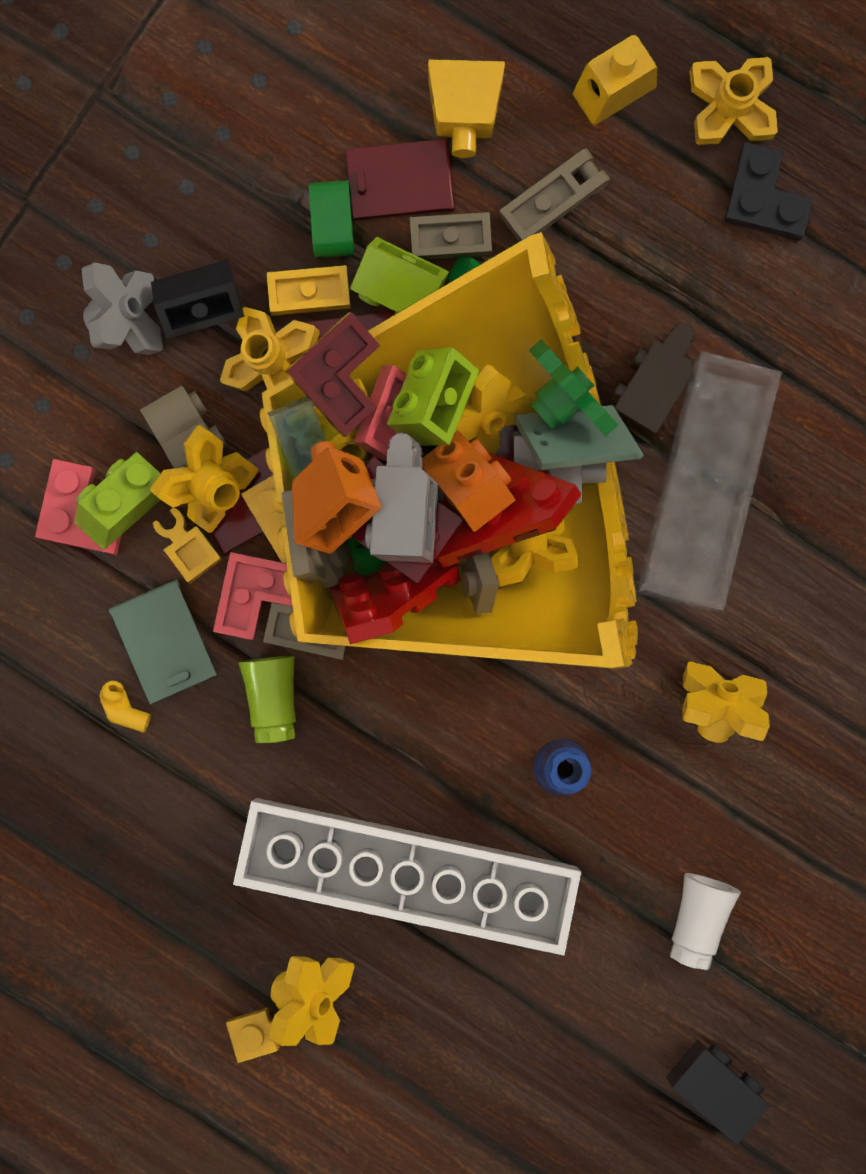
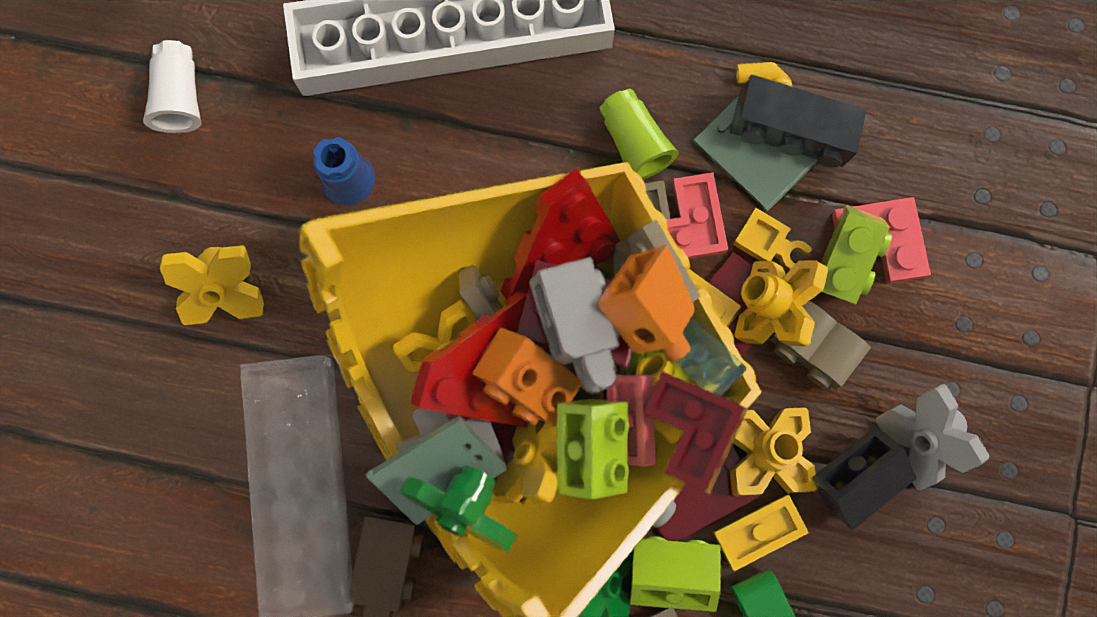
camera: 165 degrees right, 5 degrees down
(113, 647) = (798, 121): none -> black brick

